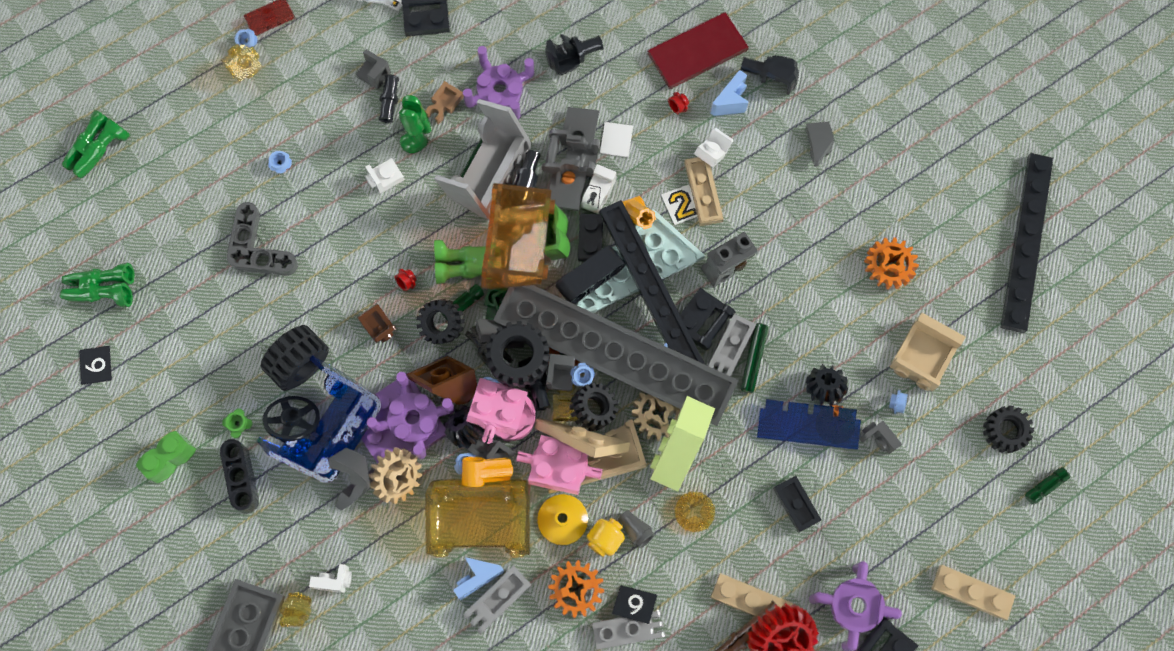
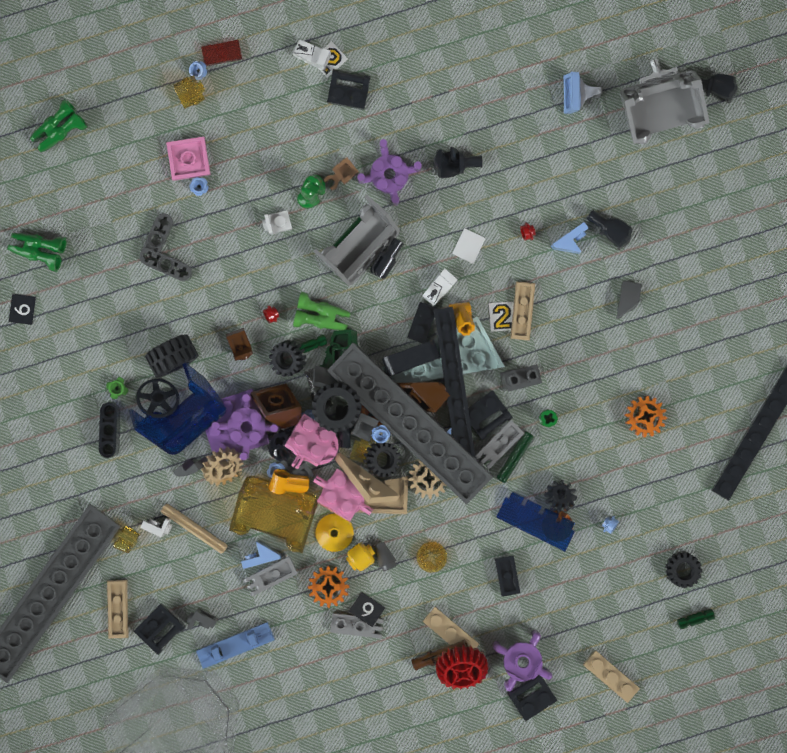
camera: 20 degrees right, 15 degrees up
(169, 453) = (64, 396): bright green brick -> none
(258, 135) = (188, 158): none -> bright pink plate
(352, 464) = (193, 451): dark grey slope -> none
(373, 70) = (292, 128): dark grey panel -> none
(381, 569) = (194, 528): none -> tan axle
(388, 98) = (298, 157): black pin -> none
(516, 237) = (362, 315): clear orange windscreen -> none
(557, 243) = (392, 317): bright green brick -> none
(580, 160) = (434, 257): dark grey piece -> none
(622, 307) = (427, 394): none -> reddish brown slope
(682, 444) = (437, 509): yellowish green wedge -> none
(697, 50) = (559, 189): dark red tile -> none
(714, 148) = (541, 280): white bracket -> none
(784, 298) = (542, 420): none -> green bush
(884, 436) = (589, 548): dark grey bracket -> none
(926, 352) = (645, 494): tan panel -> none

